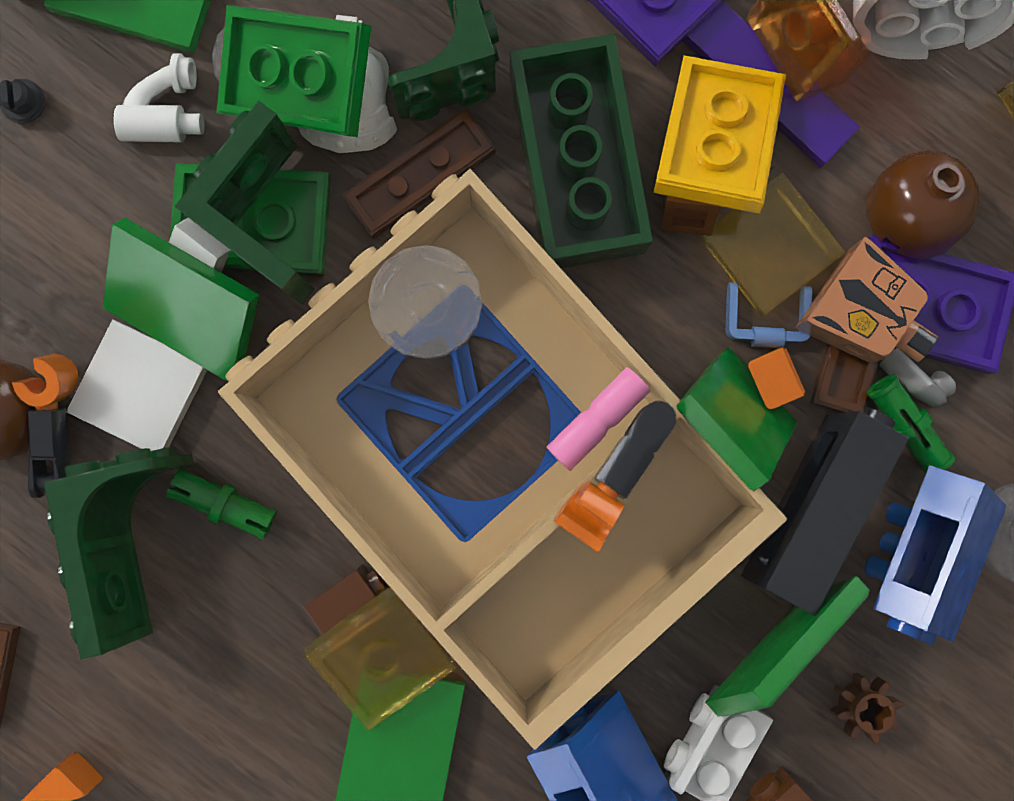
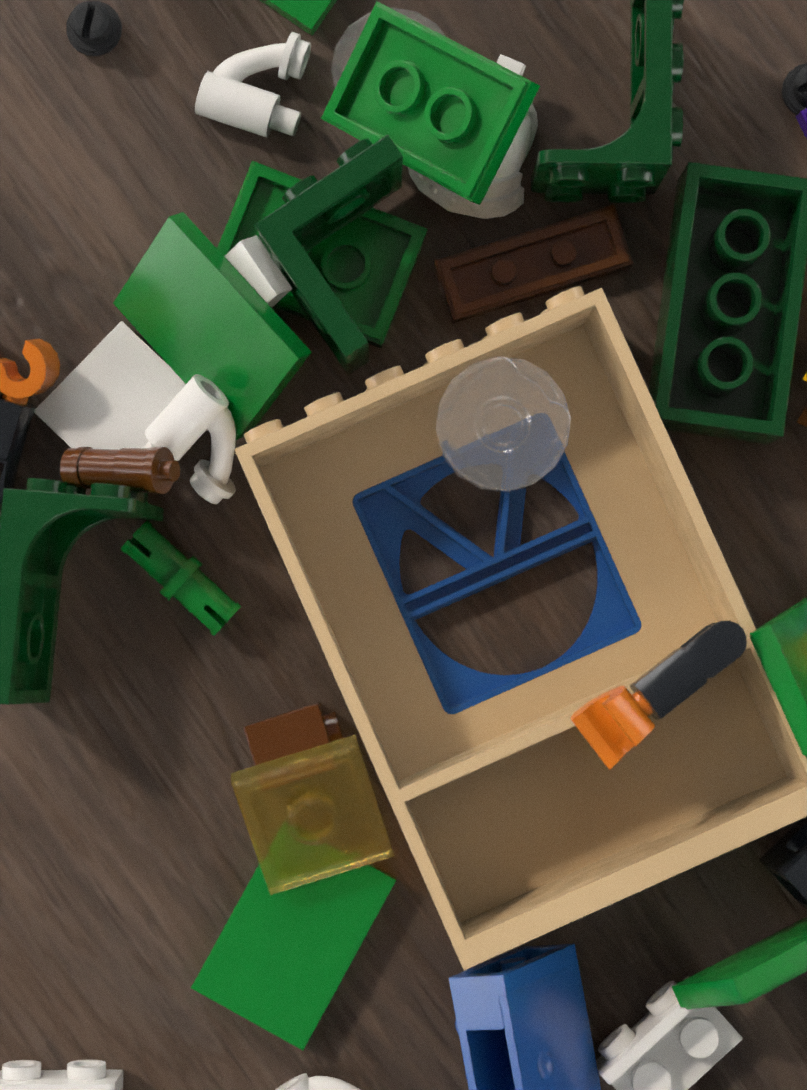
camera: 15 degrees right, 0 degrees up
(152, 431) = (132, 467): none -> reddish brown piece
(179, 386) = (183, 421): none -> white plant
(602, 415) = (649, 623): bright pink piece -> none

